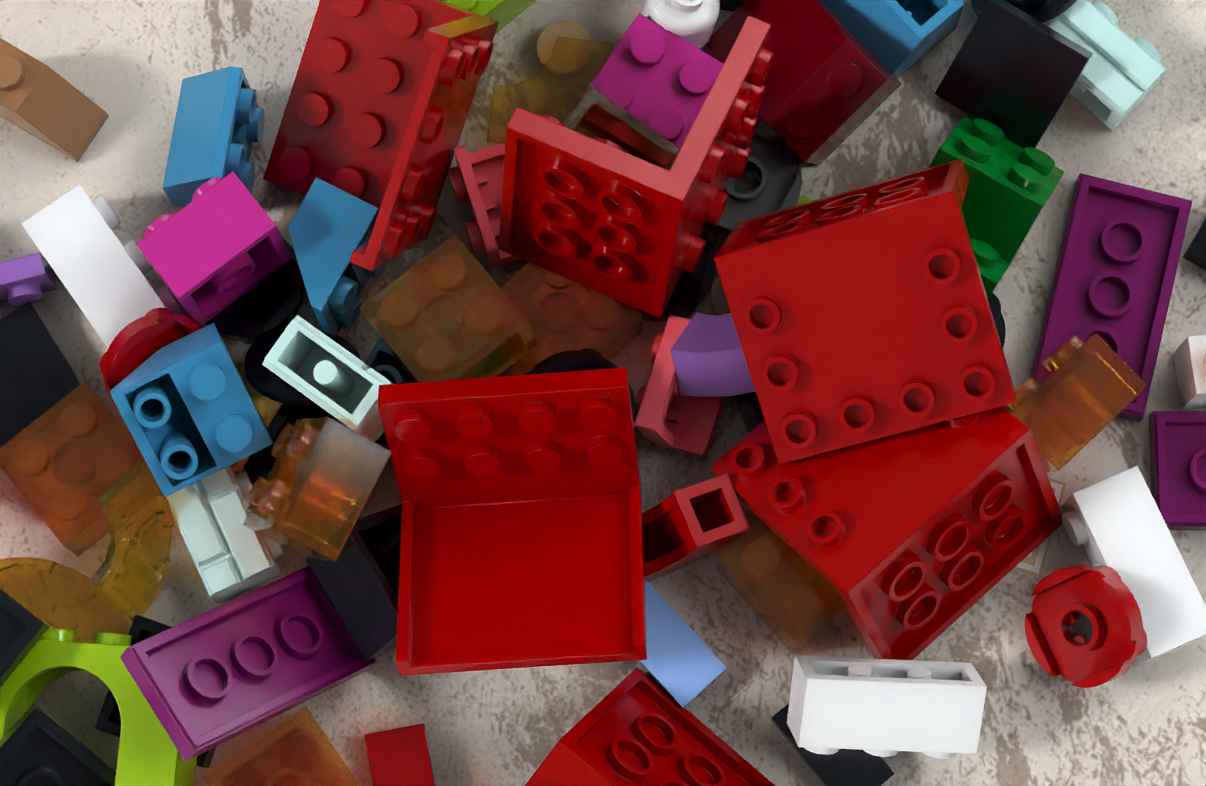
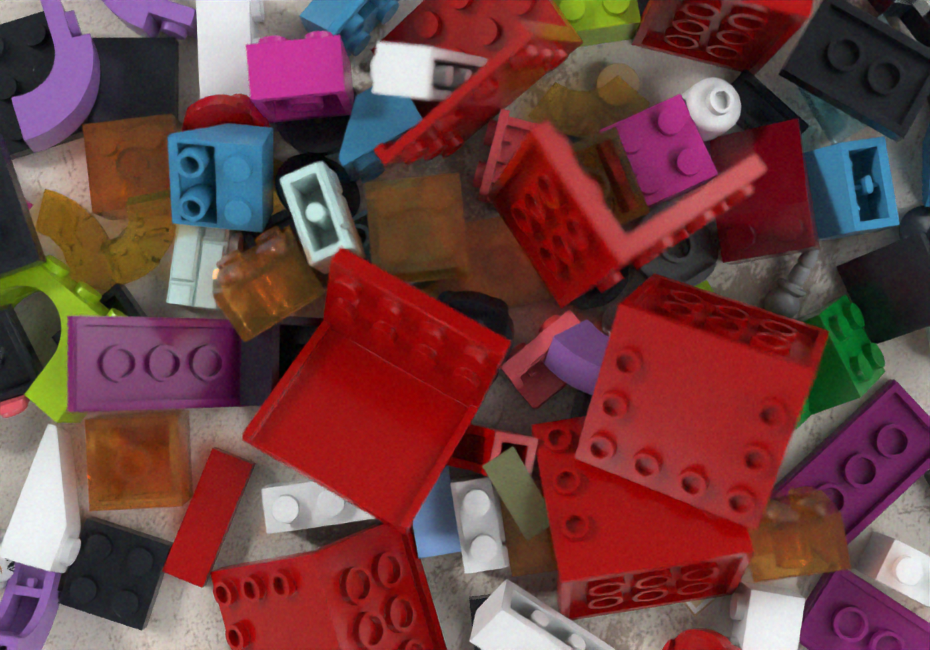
camera: 30 degrees right, 10 degrees up
(349, 152) = (421, 70): none -> white brick
(531, 711) = (305, 505): none -> white brick
(724, 616) = (479, 523): none -> white brick
(744, 544) = (518, 492): none -> olive sticker
(901, 151) = (785, 297): none -> light grey bar

